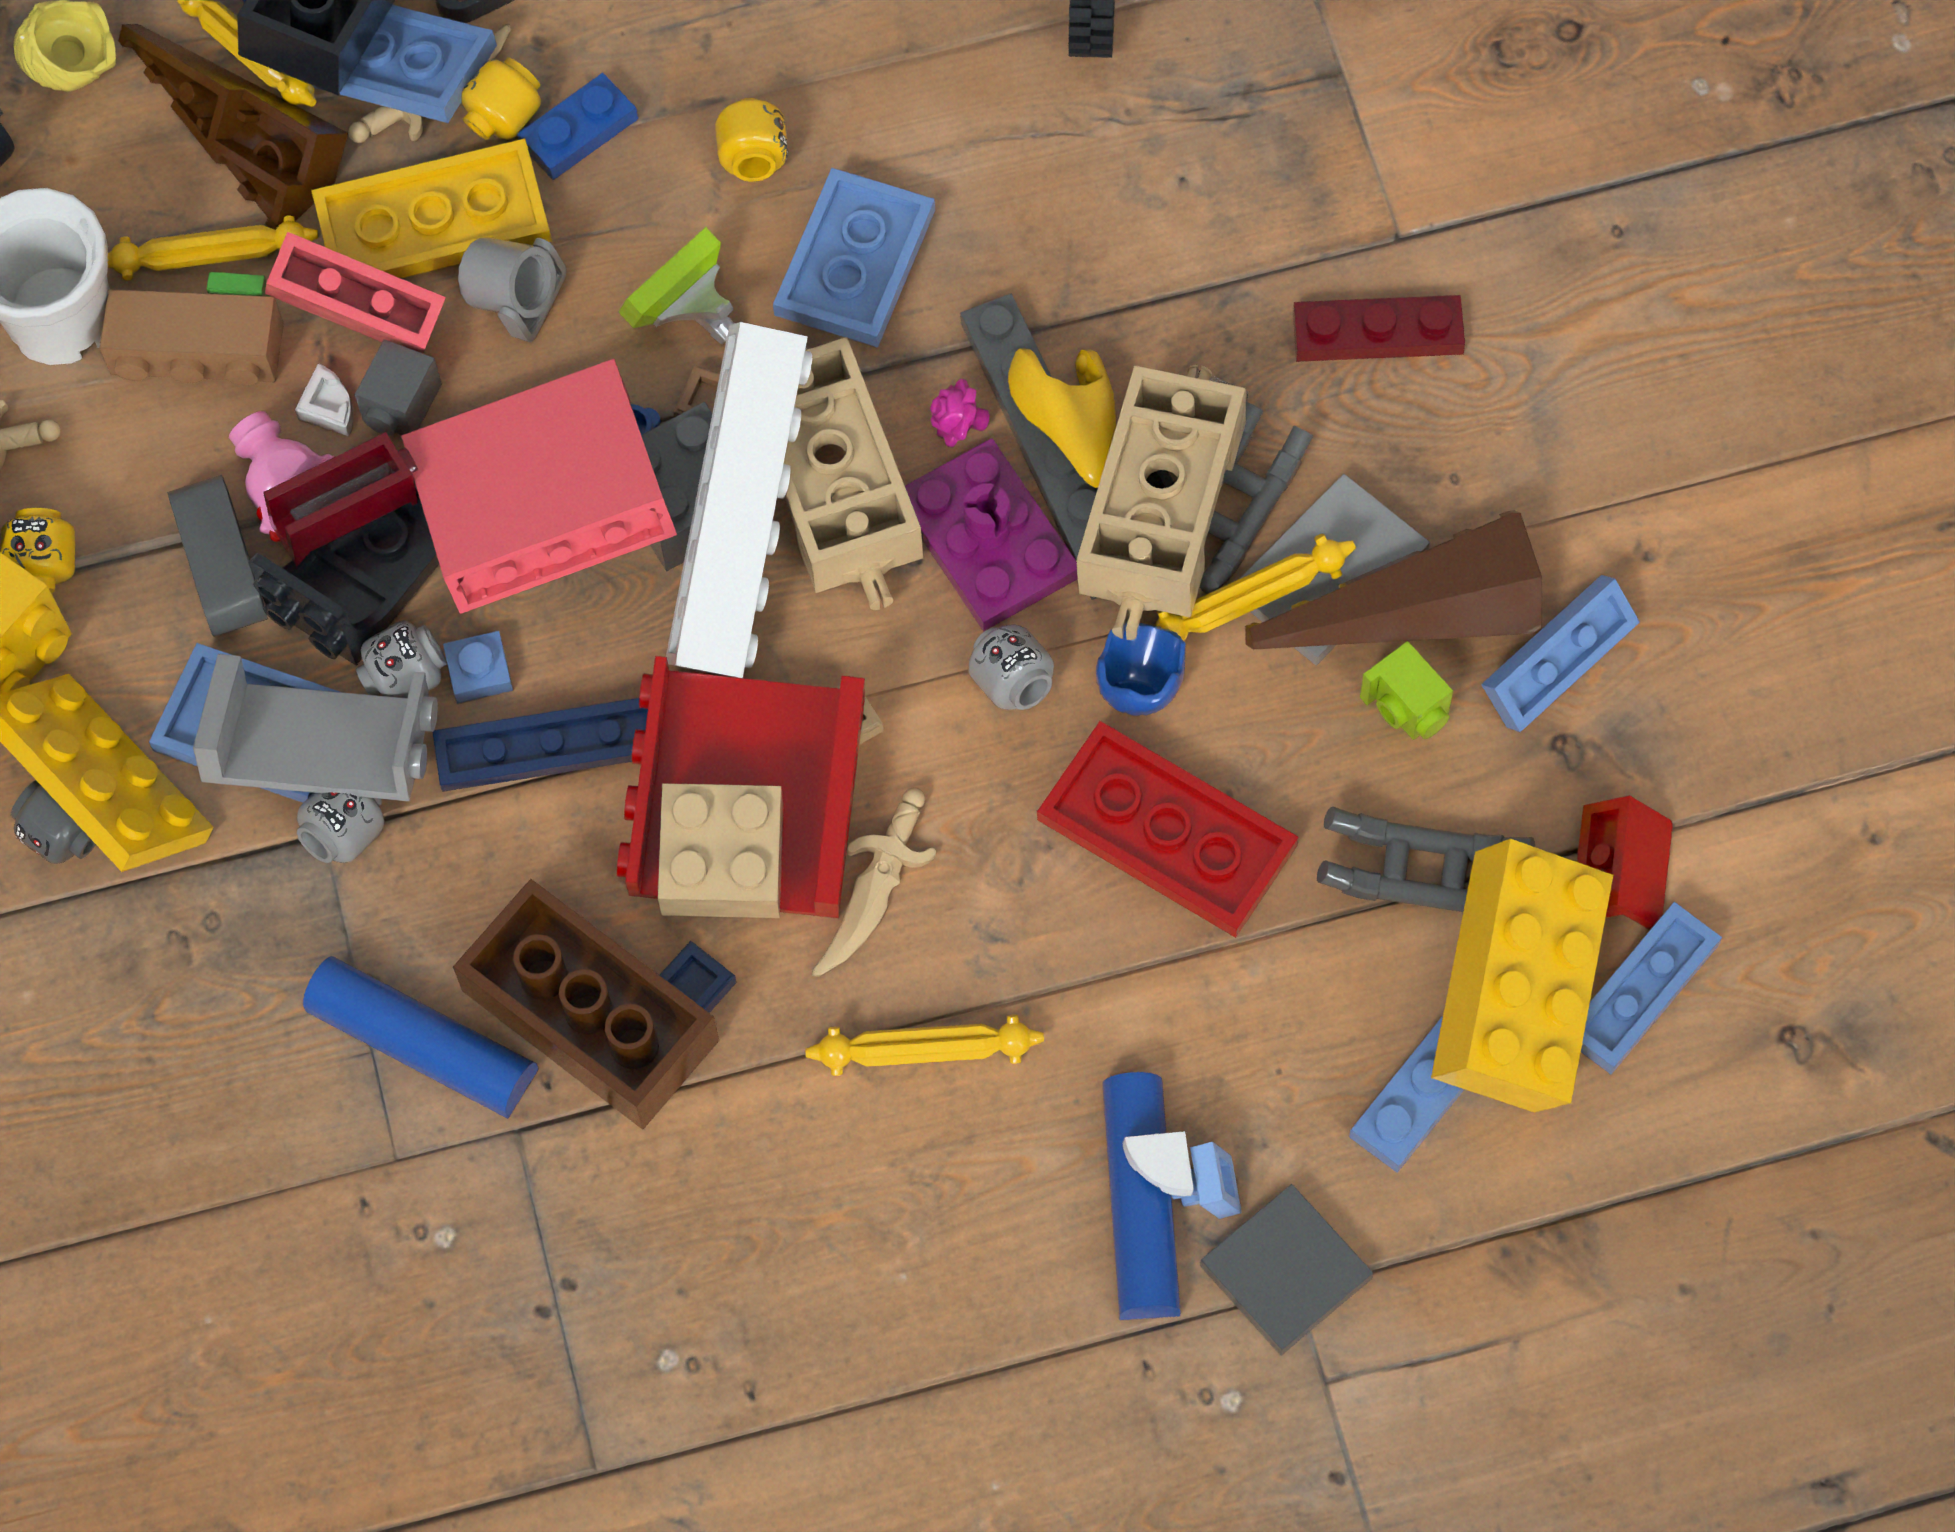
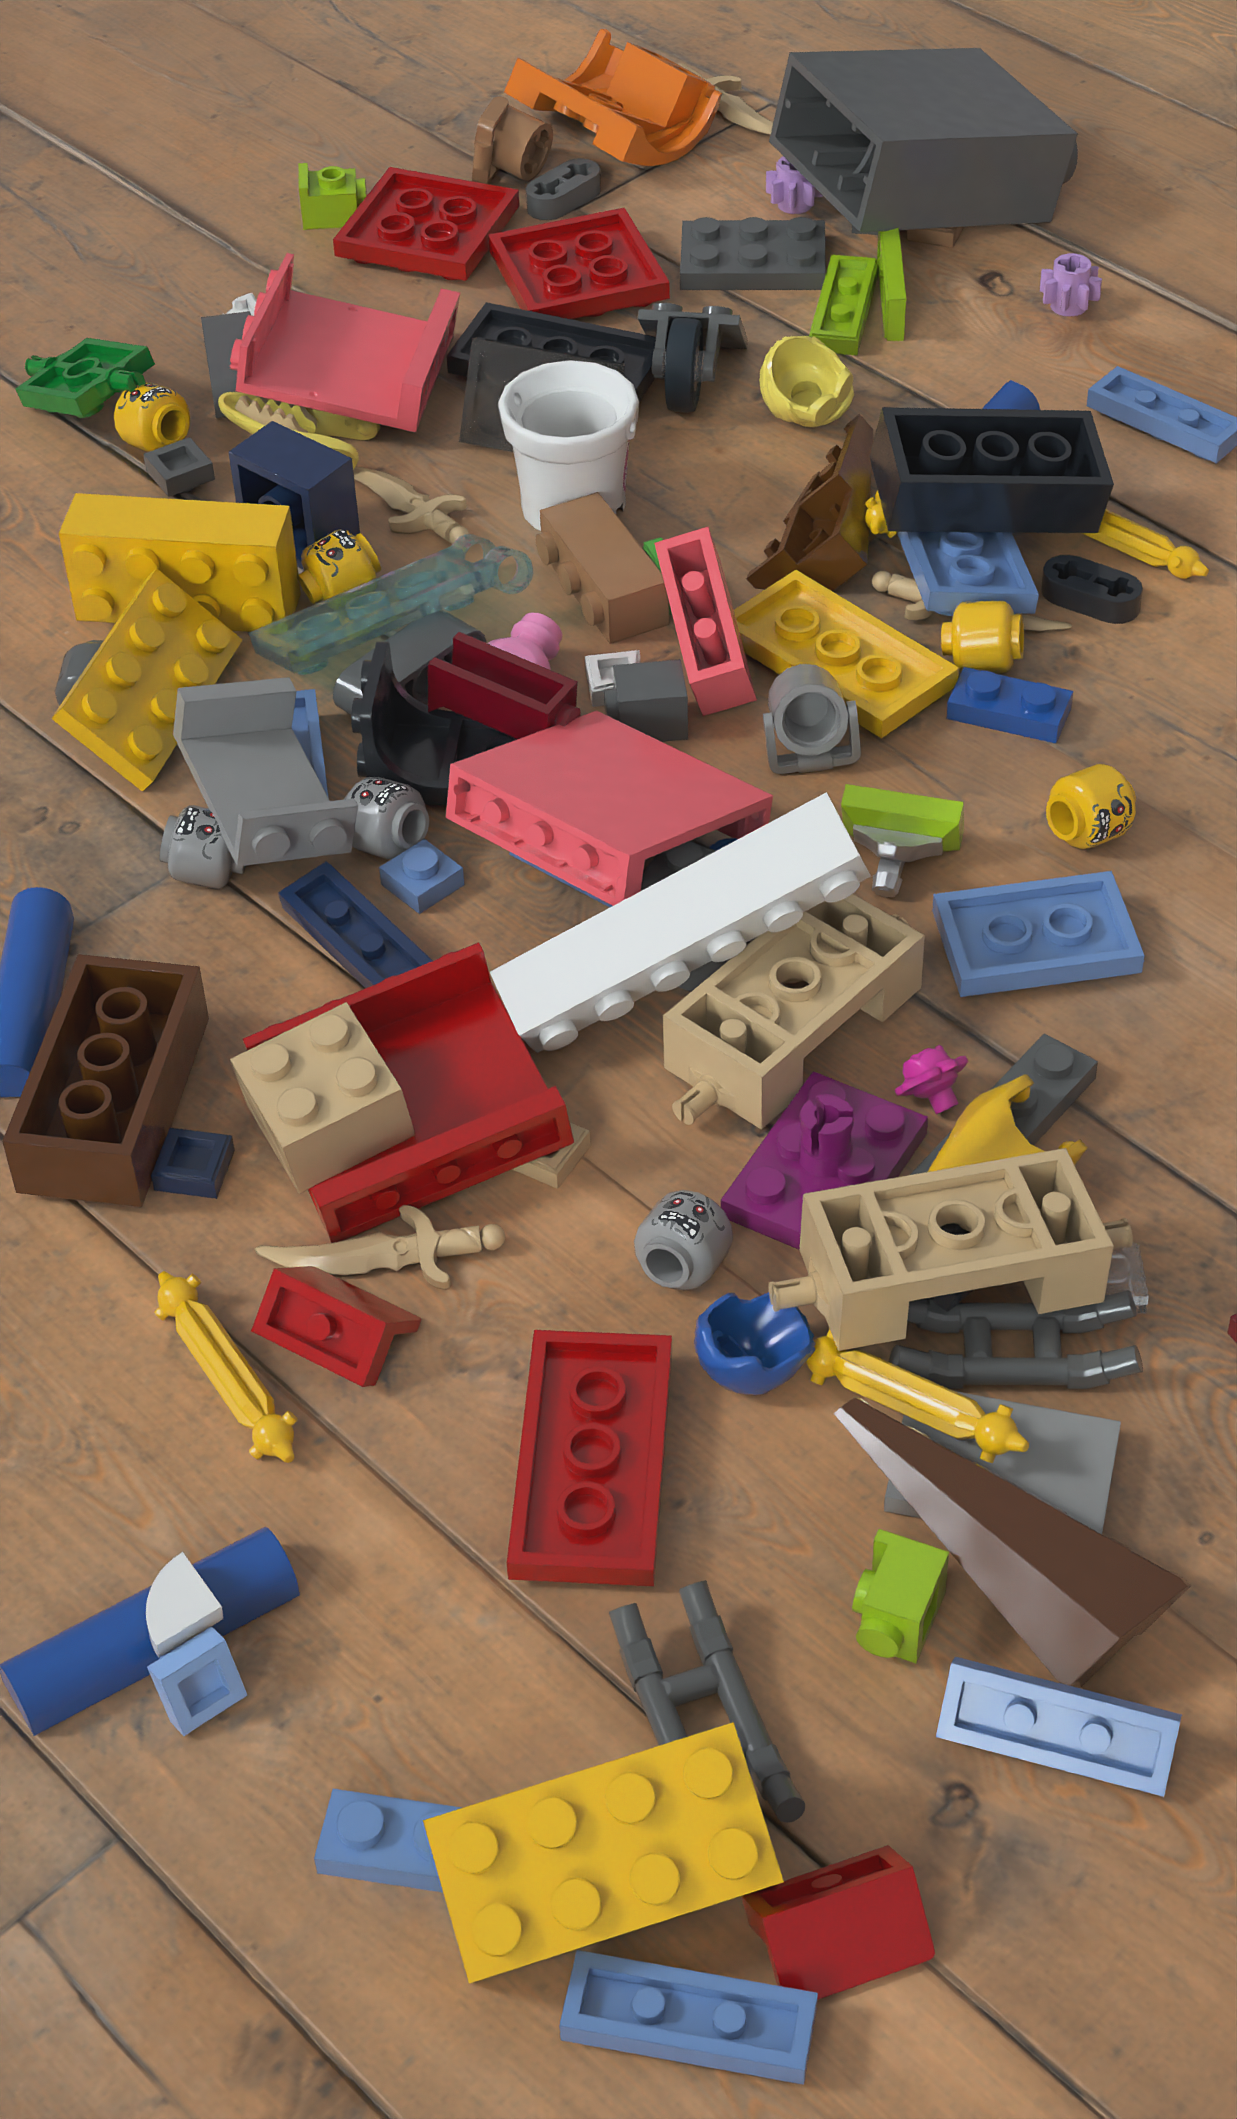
camera: 60 degrees right, 20 degrees down
(131, 555) = (386, 603): none -> clear light blue hinge
(203, 247) = (668, 523): yellow wheel -> none
(933, 947) = (331, 1322): none -> red panel
(1286, 1269) = (133, 1809): dark grey tile -> none

